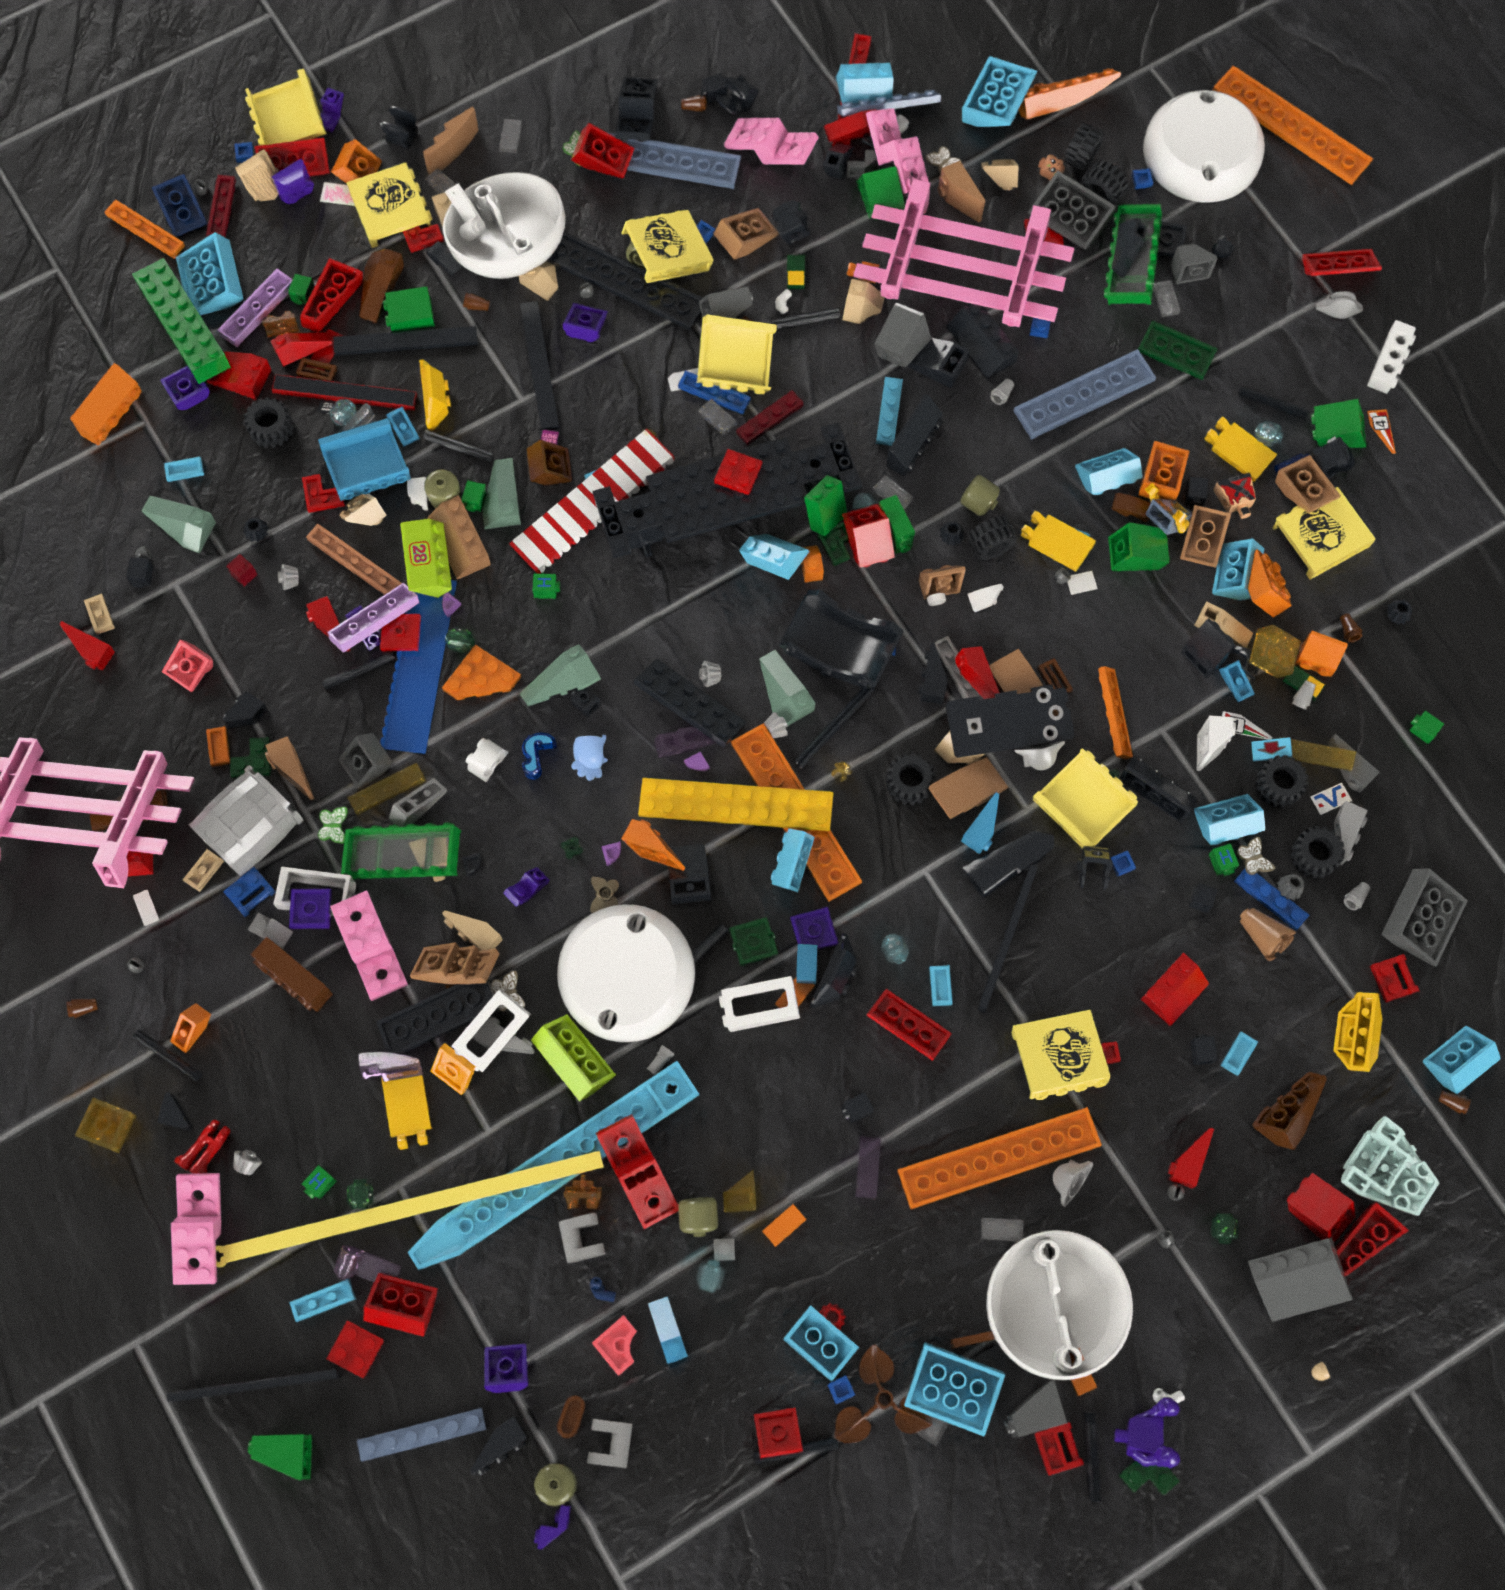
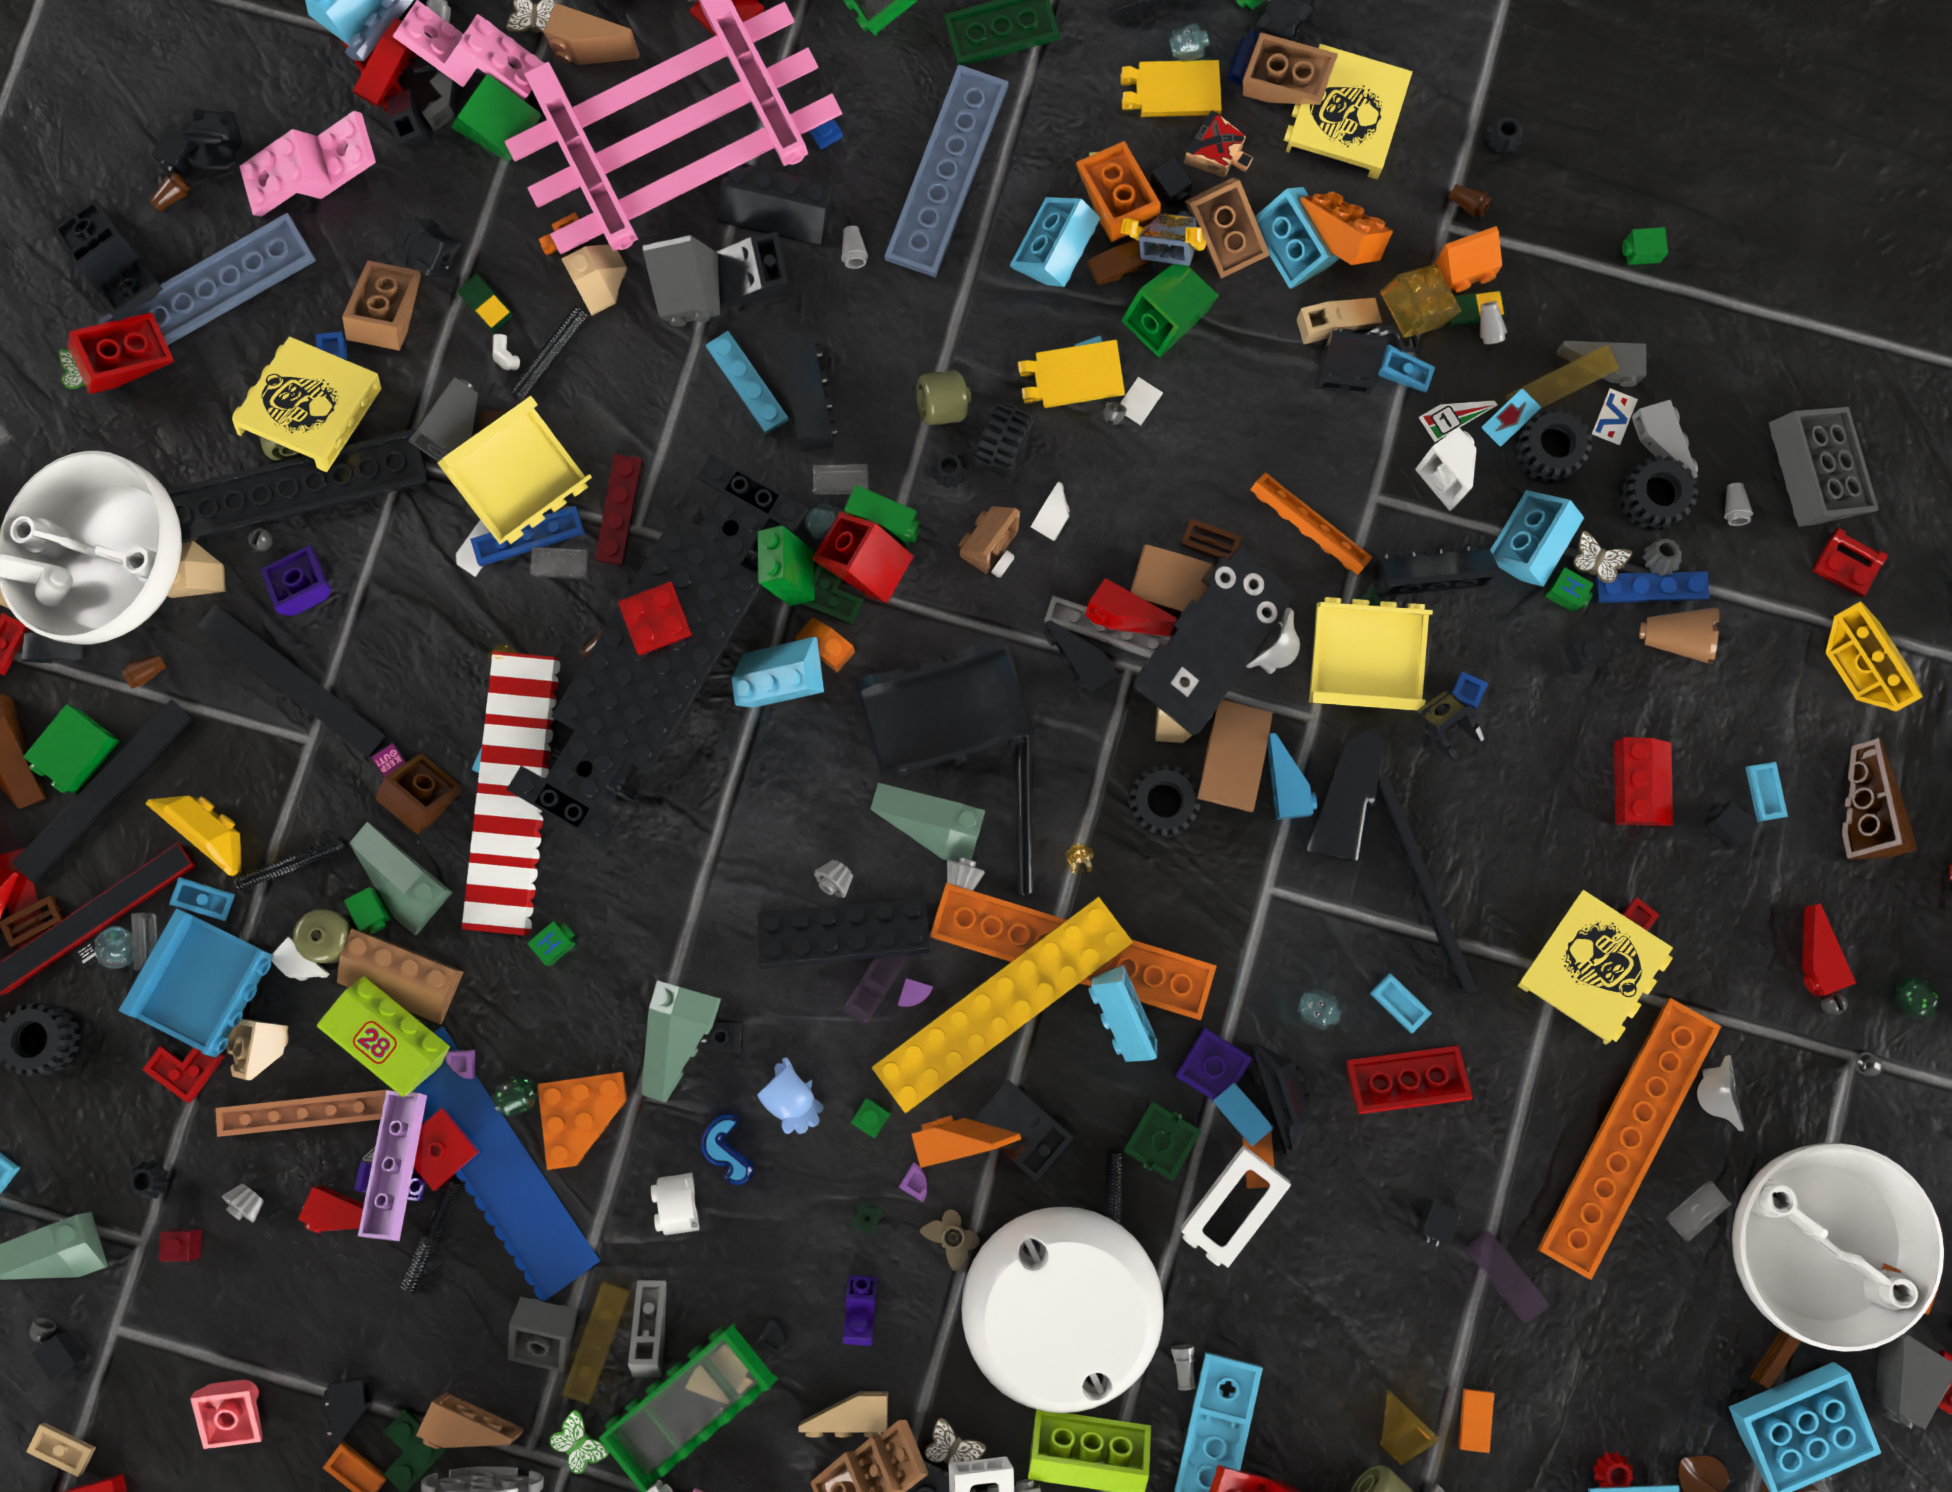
camera: 40 degrees left, 10 degrees up
(619, 800) = (871, 1117): none -> green brick

